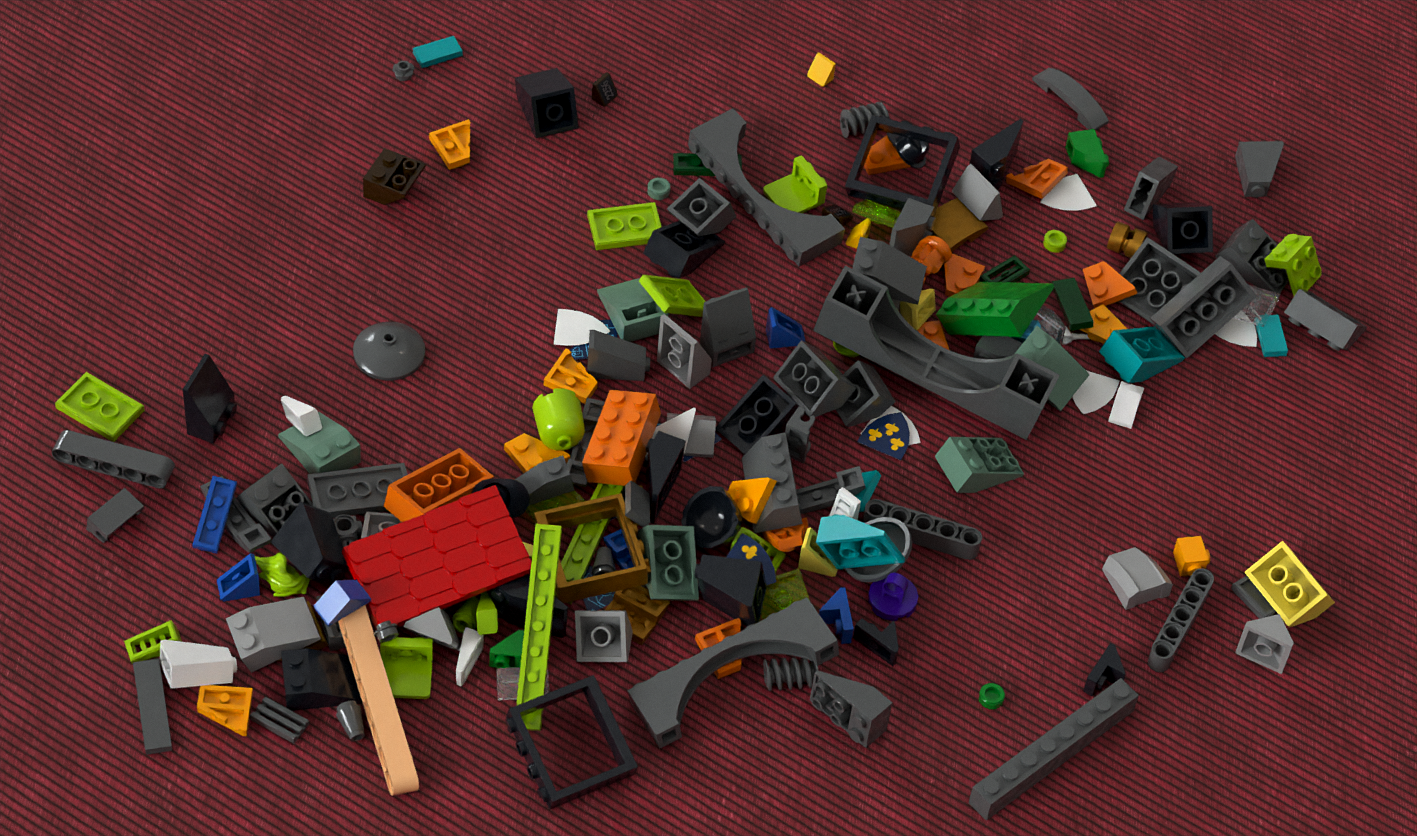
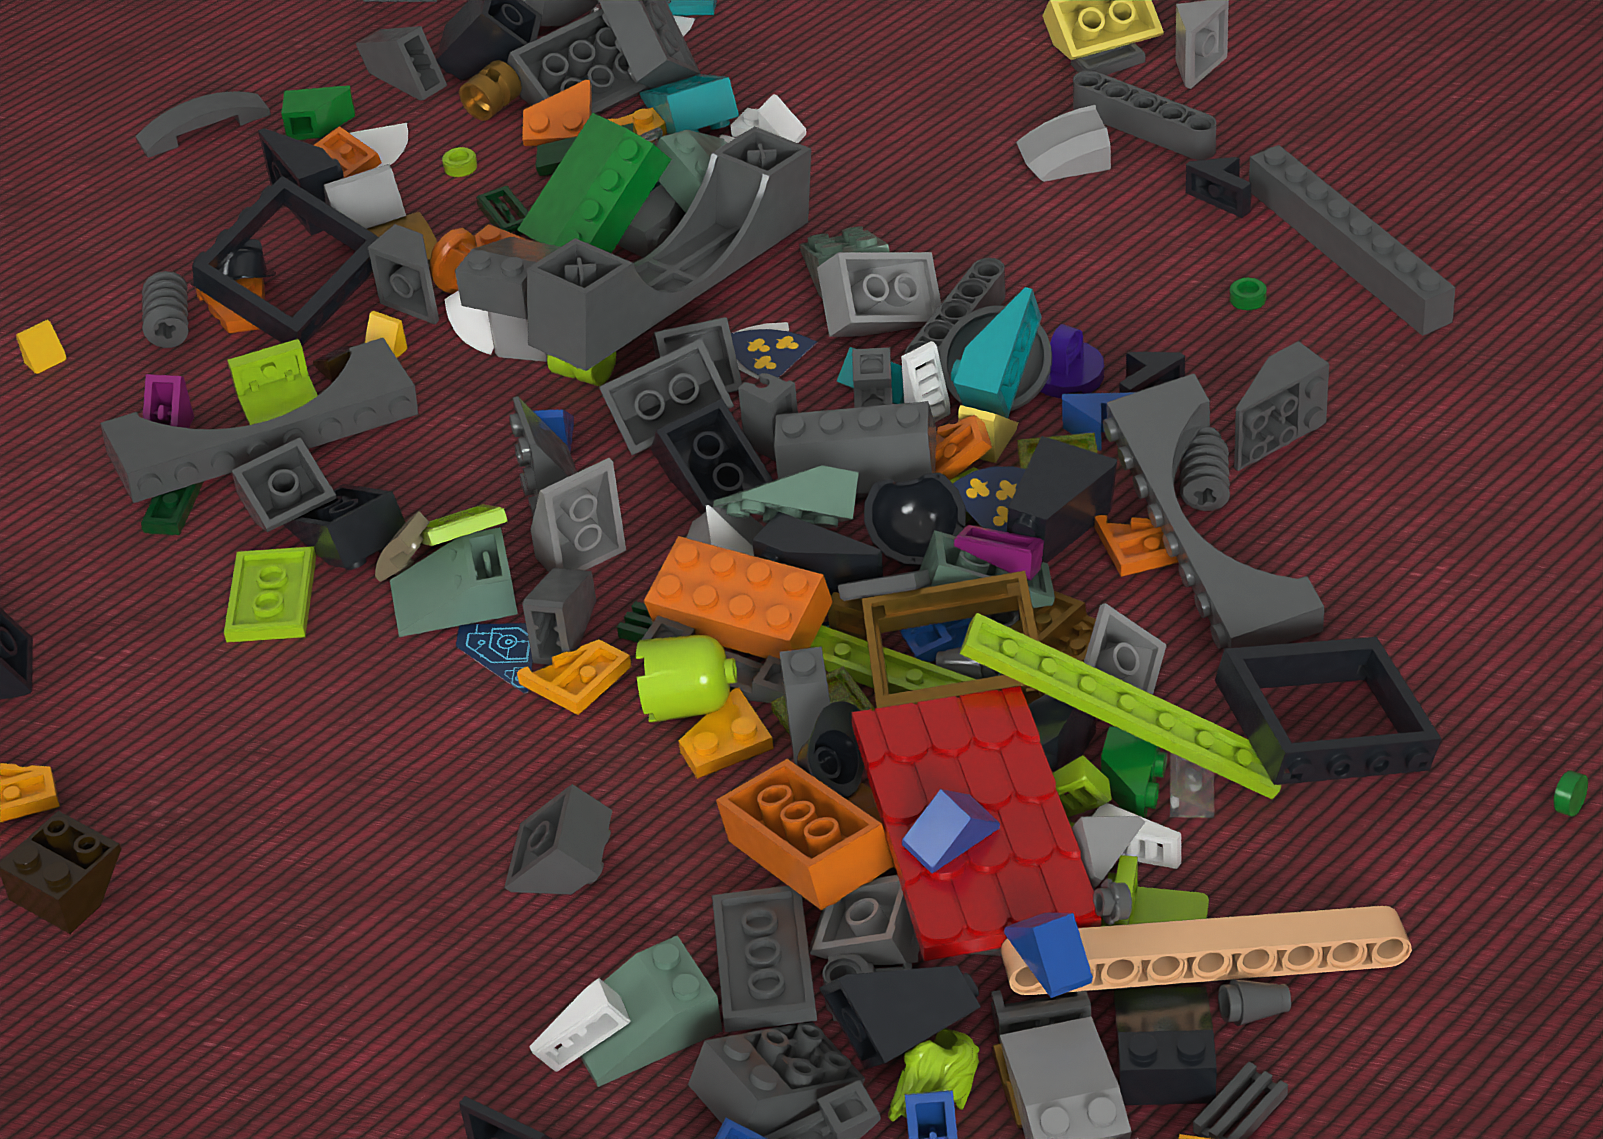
camera: 70 degrees left, 10 degrees down
(389, 351) = (444, 915): dark grey dish -> none
(418, 544) = (948, 829): none -> slope
(435, 391) = (560, 845): none -> dark grey slope
(574, 327) = (466, 668): white sticker -> none
(653, 270) = (398, 552): none -> dark tan slope
(658, 188) = (206, 549): sand green tile -> none
(678, 577) = (1003, 549): none -> magenta slope
(713, 452) = (813, 495): none -> sand green slope
(751, 496) = (881, 460): light orange wing -> none
(765, 142) = (167, 401): none -> magenta slope
(876, 212) = (361, 306): clear neon green plate -> none
(935, 479) = (878, 292): none -> light grey slope
(1190, 555) = (1041, 95): light orange brick -> none

